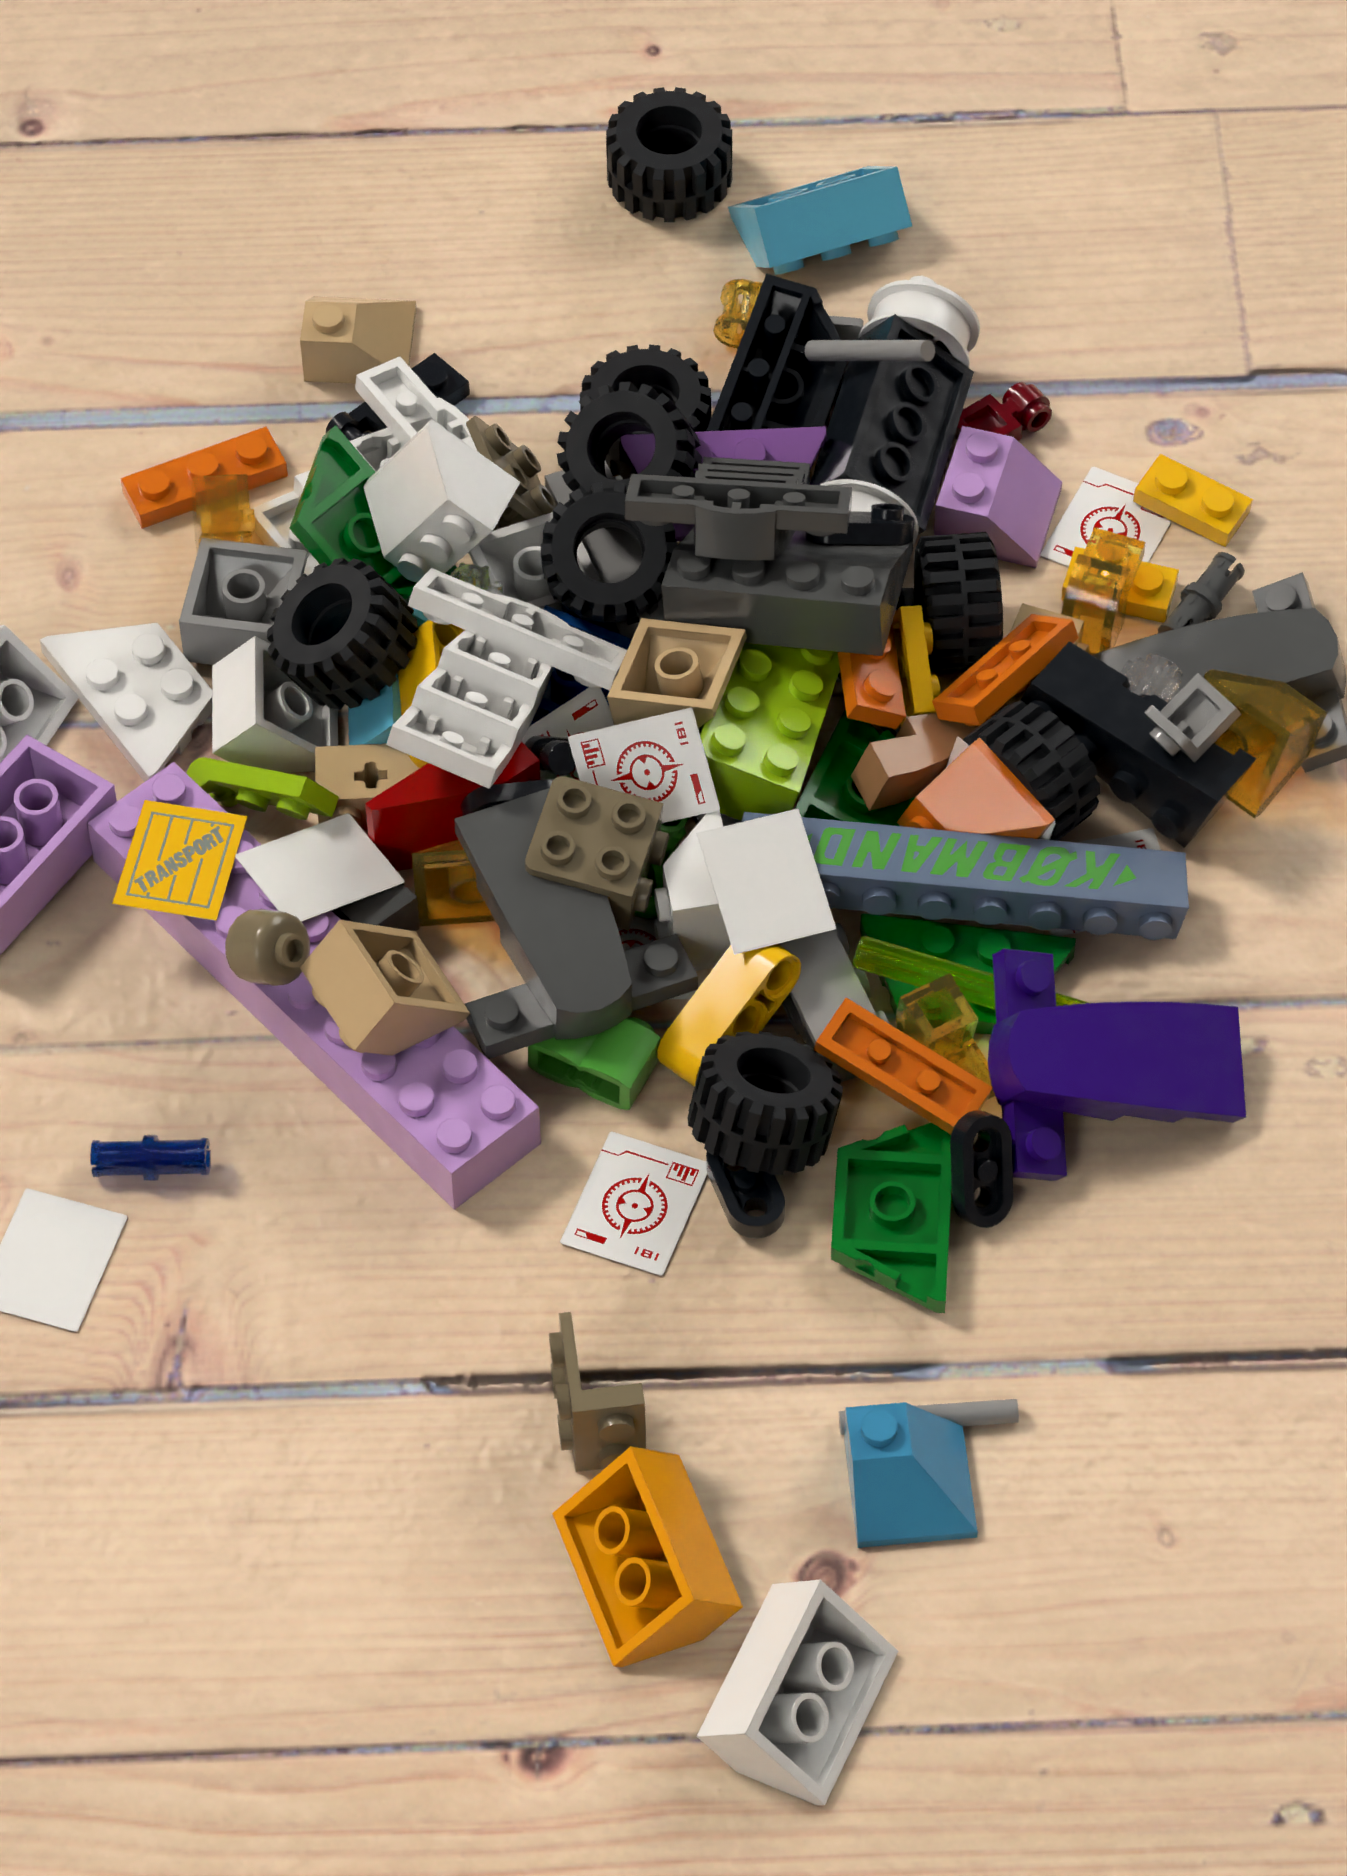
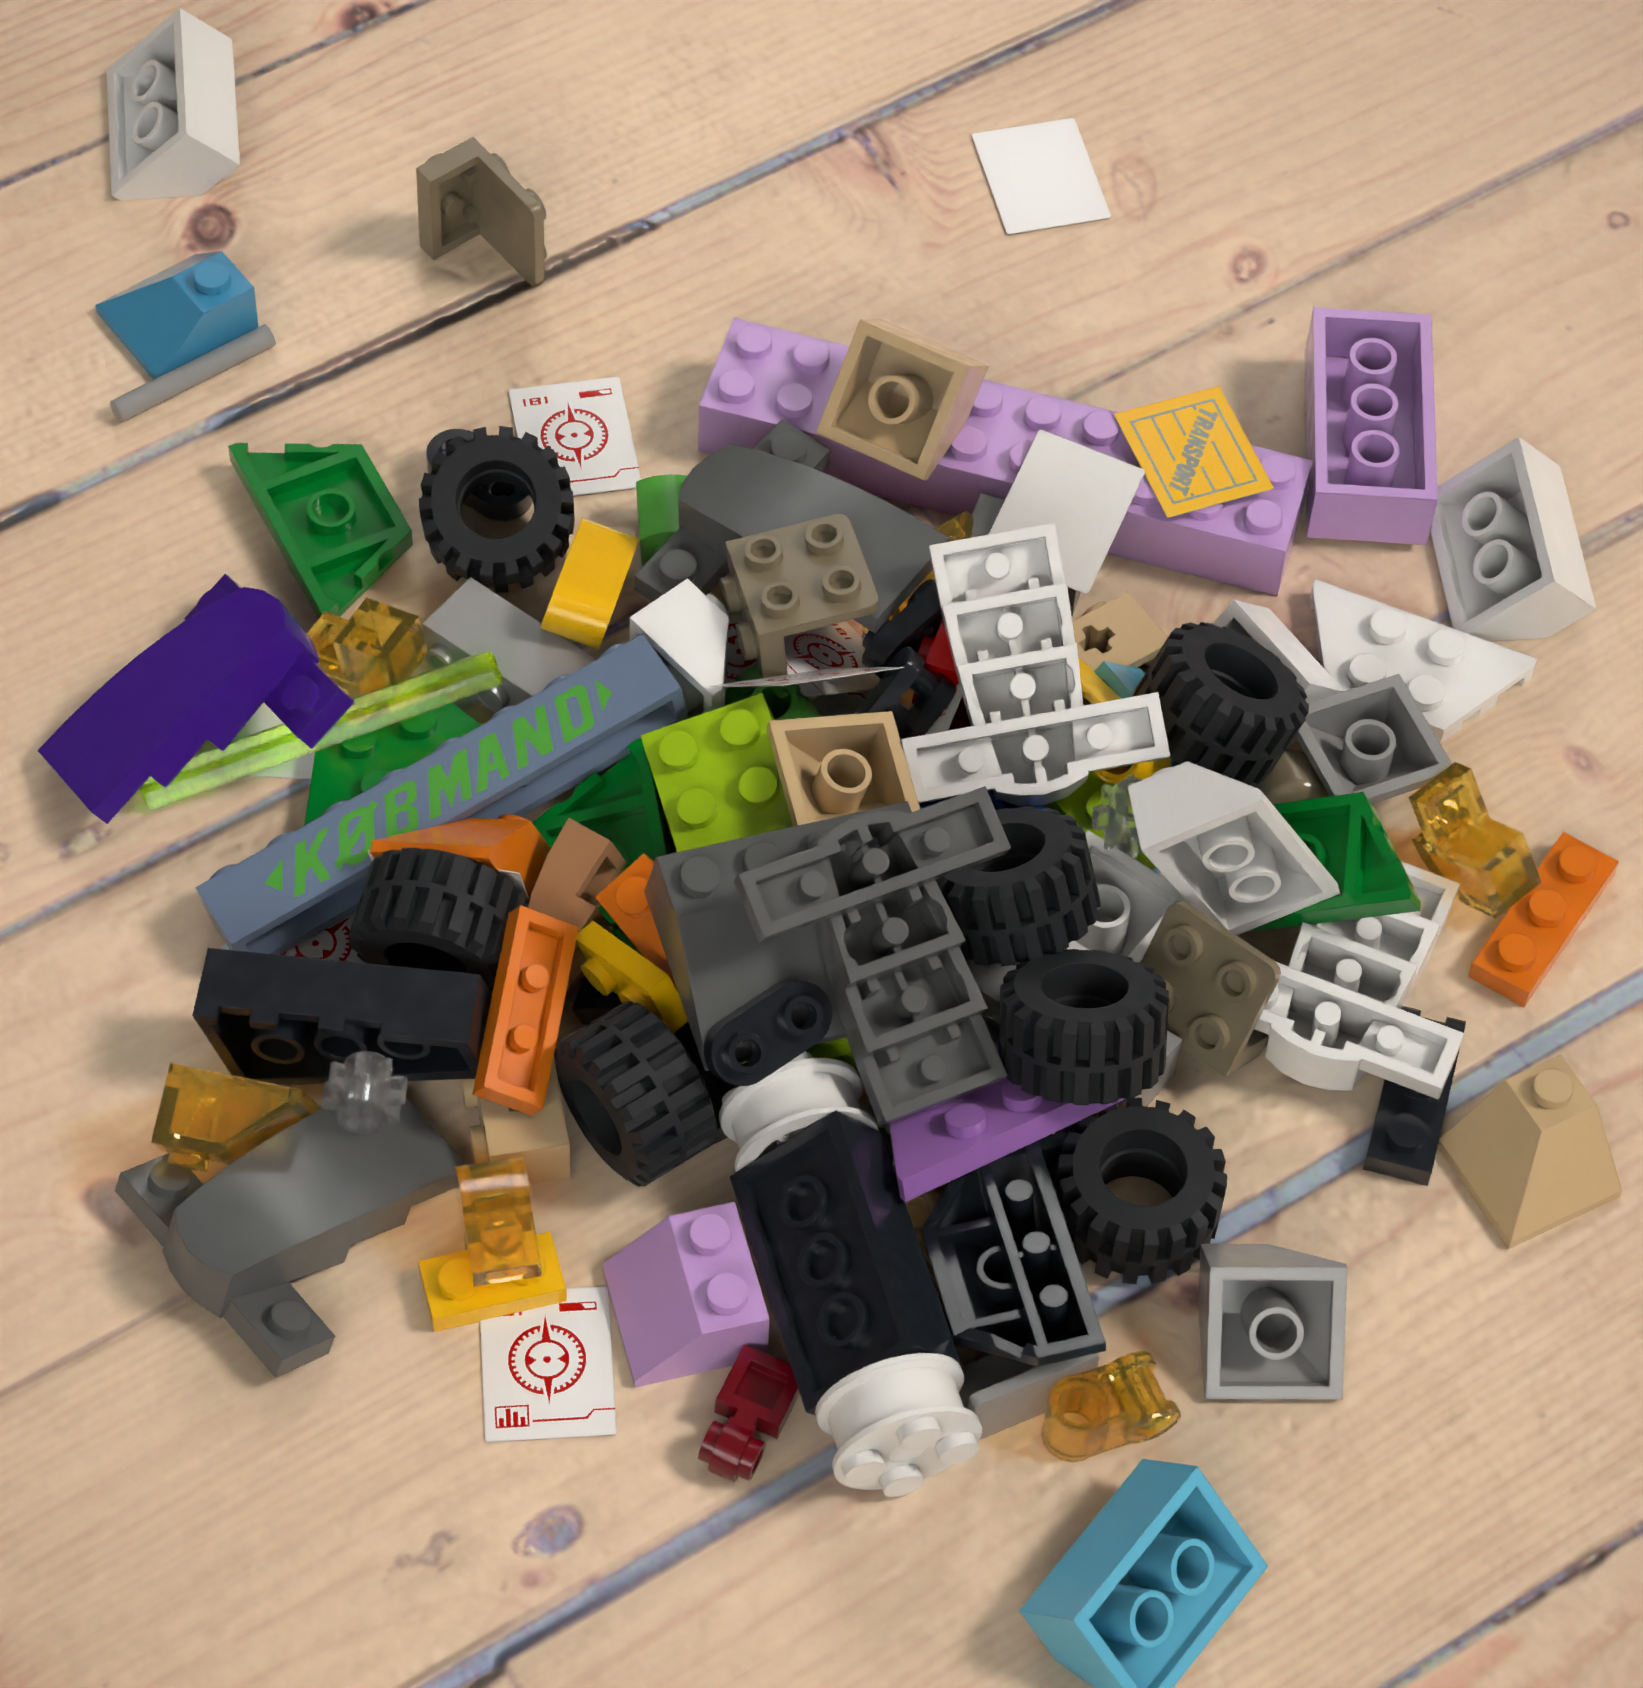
camera: 145 degrees right, 0 degrees up
(150, 1157) = (1020, 265): clear blue pin -> none
(260, 787) = (1180, 573): lime plate -> none
(267, 947) = (1033, 371): dark tan head -> none
(619, 312) = (1271, 1323): none -> light grey slope
(640, 148) = (1389, 1512): black tyre -> none
(646, 1557) = (346, 149): light orange slope -> none
(766, 881) = (613, 636): white sticker -> none
(869, 350) = (909, 1274): light grey bar -> none
(900, 1066) = (405, 581): orange plate -> none
(983, 1166) = (262, 555): black plate -> none
(1192, 500) = (469, 1430): yellow plate -> none
(1192, 719) = (278, 980): light grey bracket -> none
(1203, 598) = (385, 1293): dark grey pin -> none

